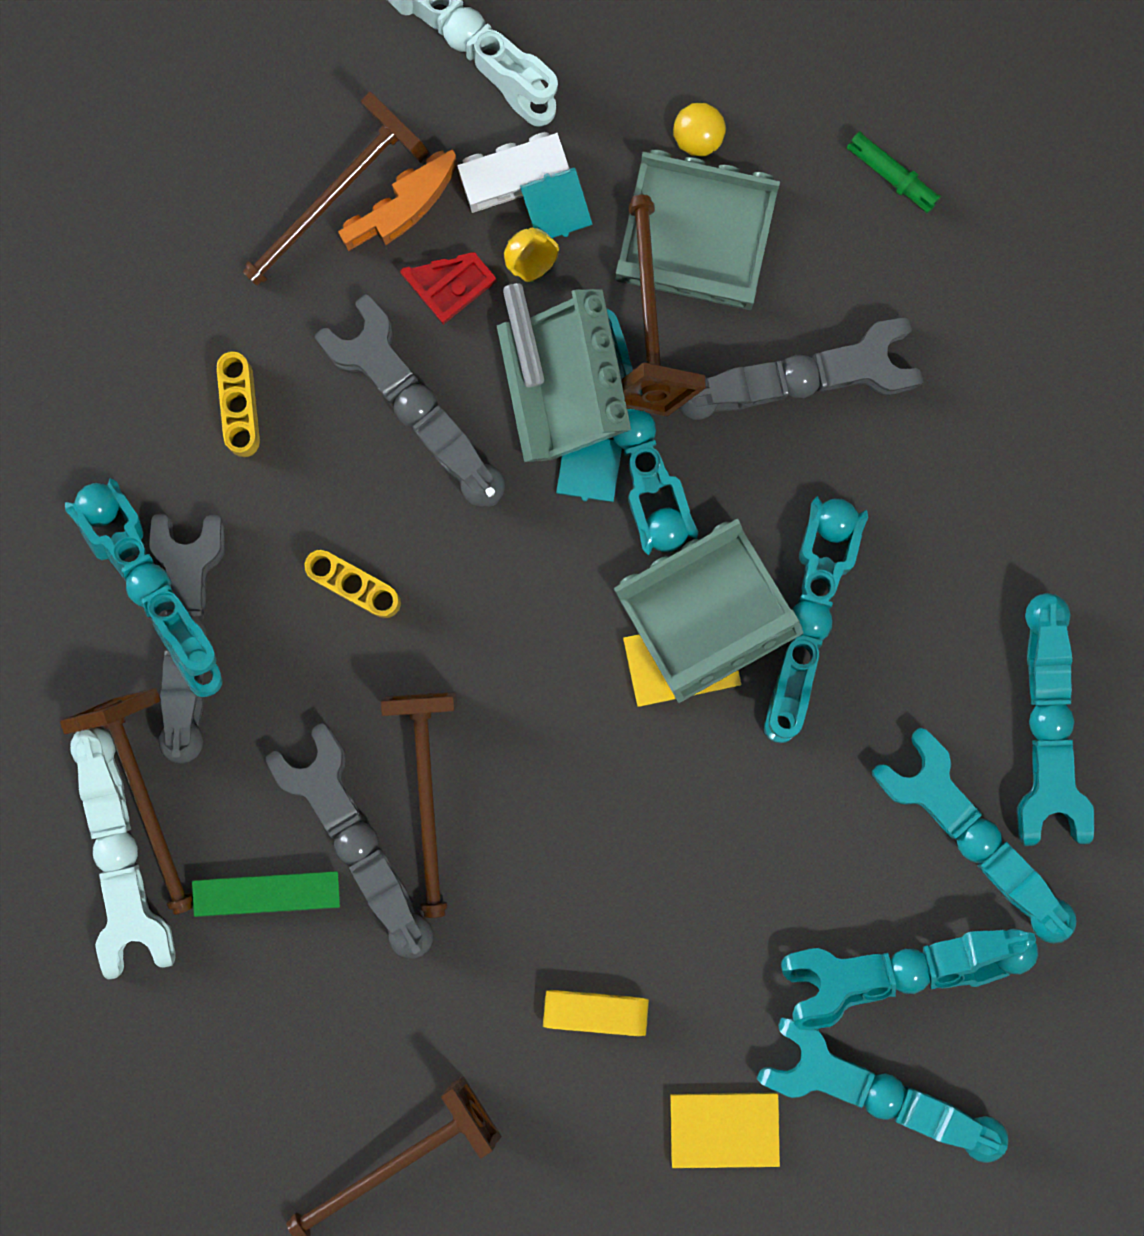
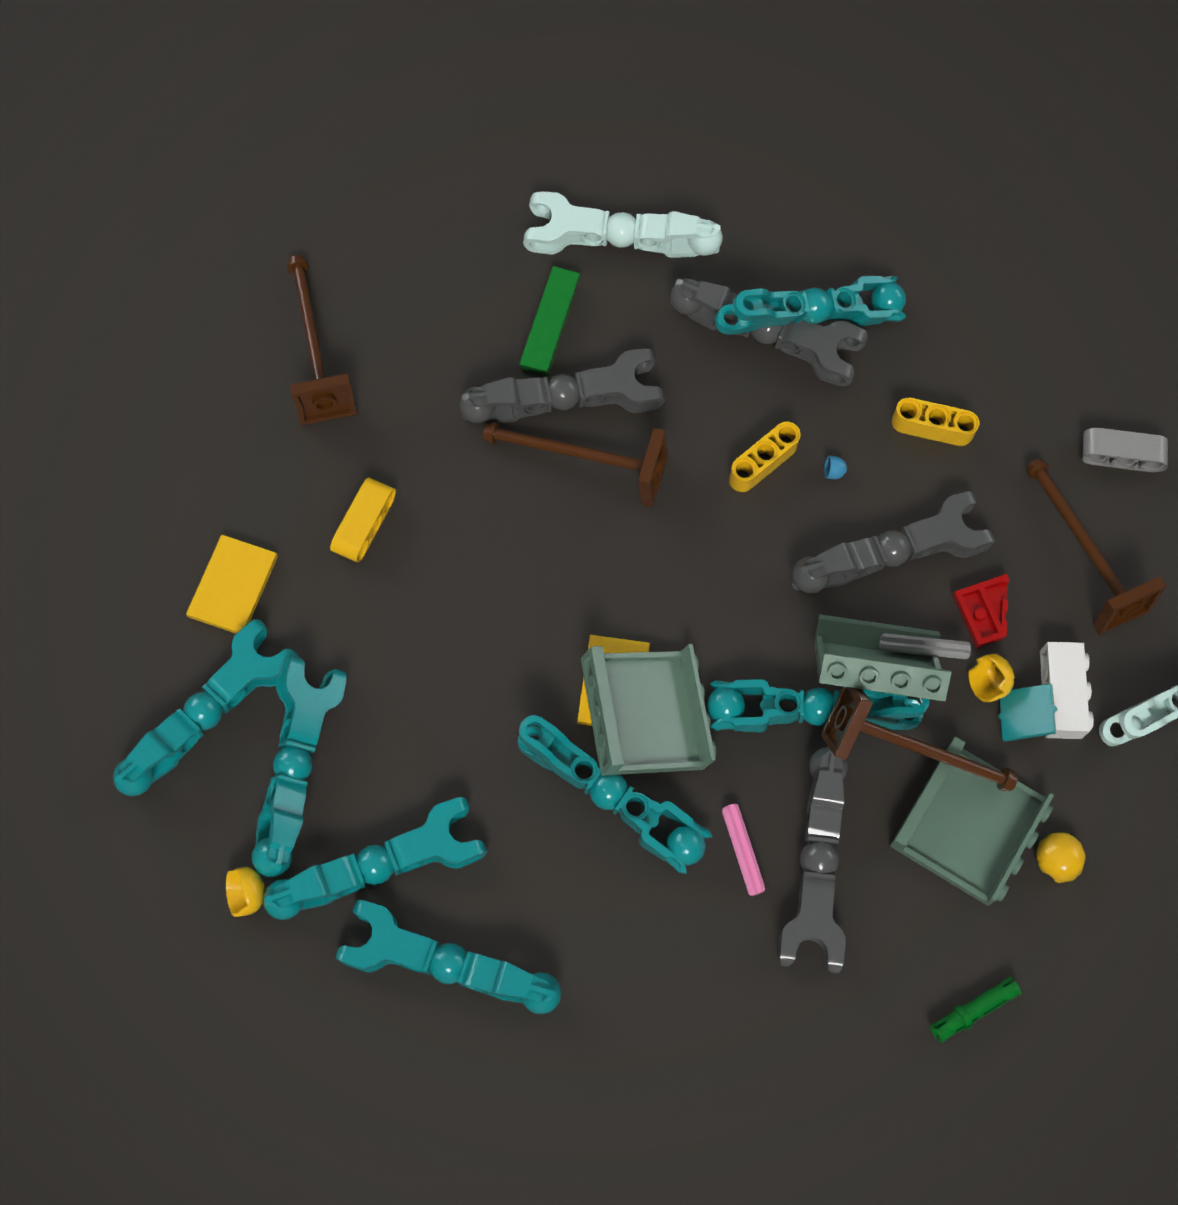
camera: 105 degrees right, 15 degrees down
(112, 716) = (722, 251): reddish brown tile -> none
(196, 181) = (1125, 450): none -> light grey beam
(336, 501) = (834, 467): none -> dark azure hinge
(415, 195) = (1065, 606): orange slope -> none
(591, 472) = (793, 666): teal piece -> none
(814, 460) = (743, 849): none -> bright pink axle
(1059, 966) = (244, 891): none -> yellow hair

